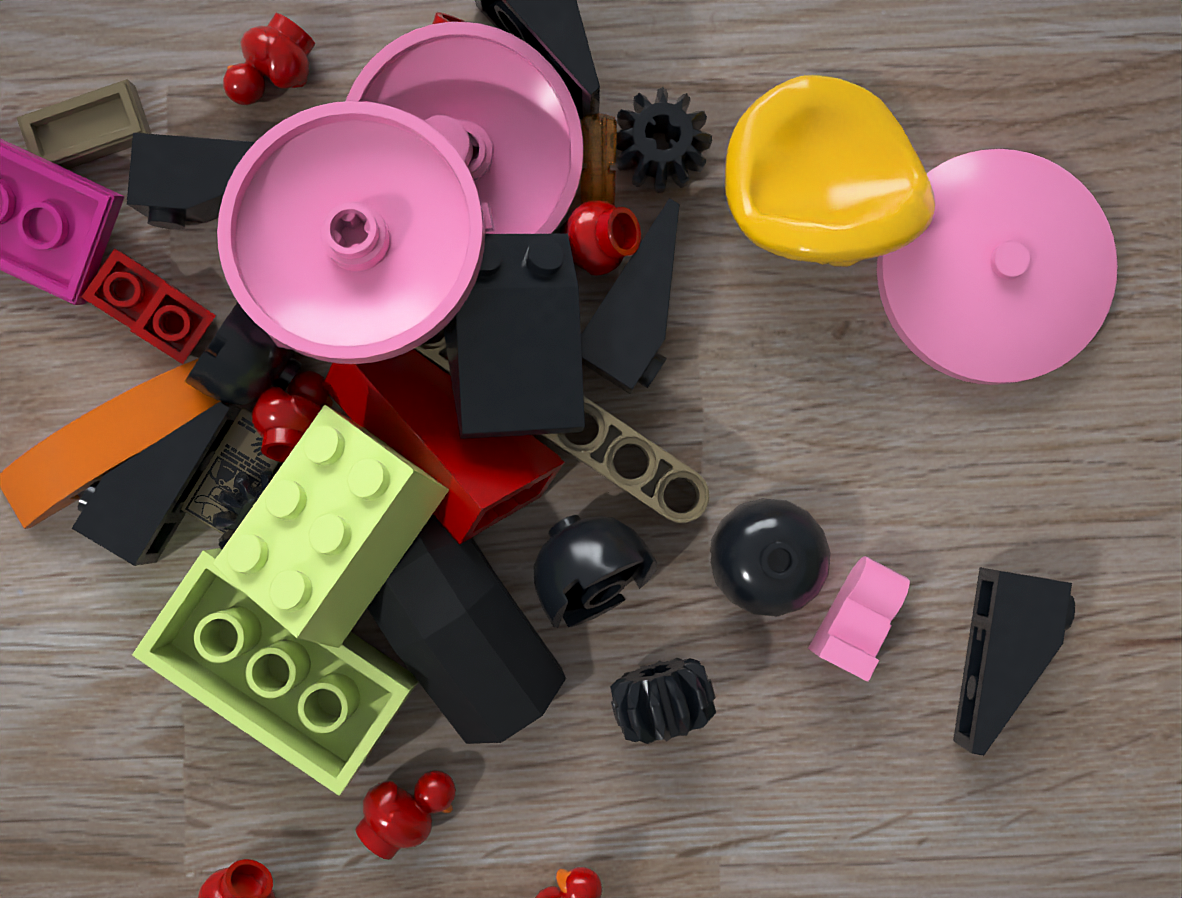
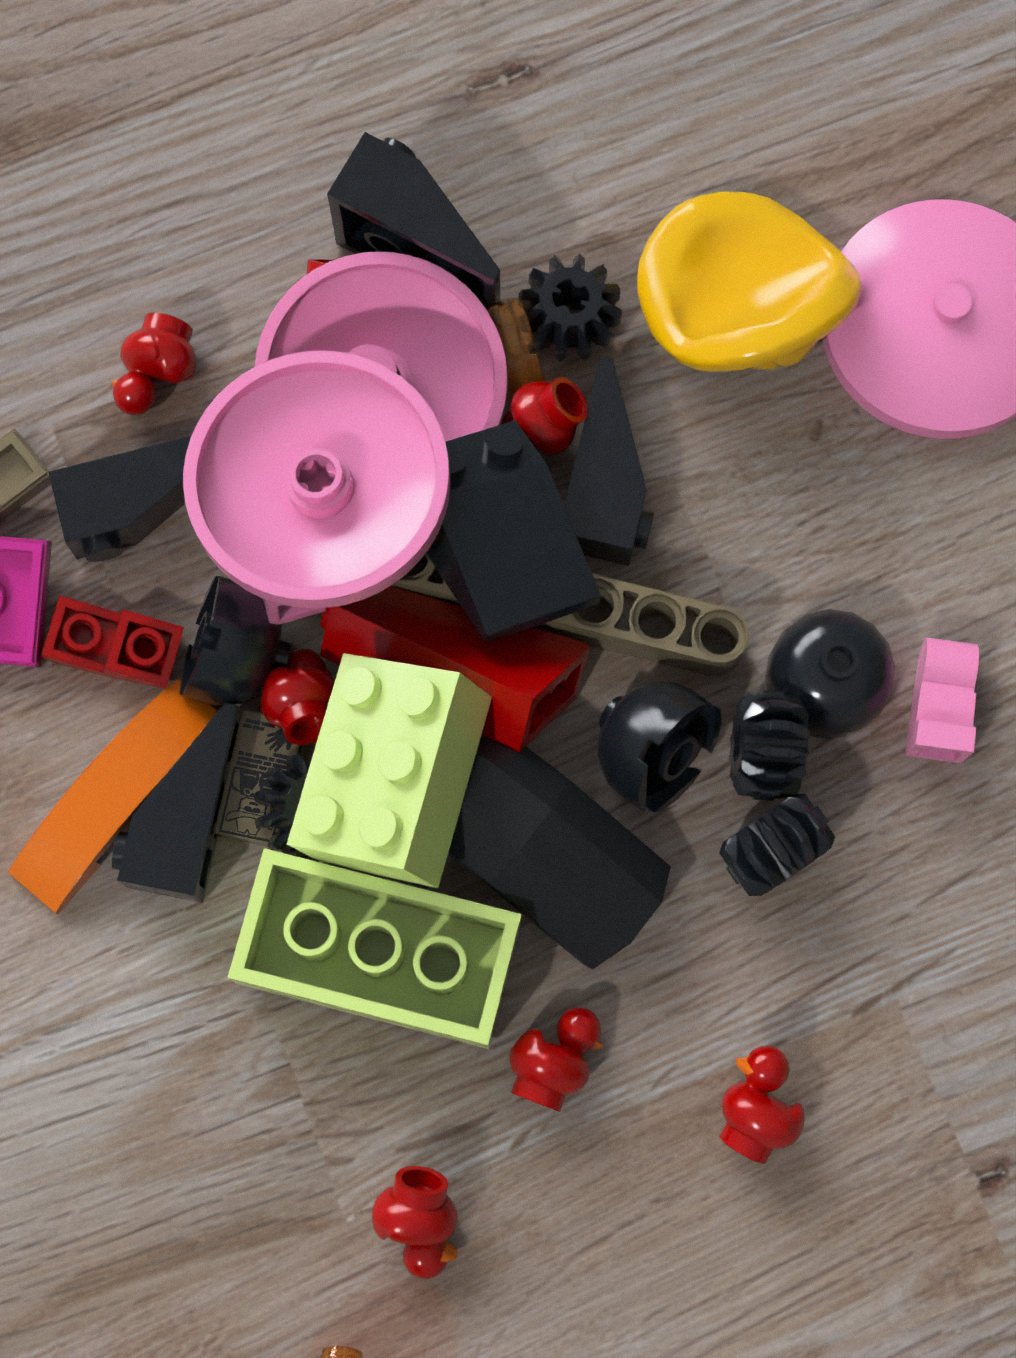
camera: 15 degrees left, 10 degrees down
(689, 609) = (769, 745): none -> black gear

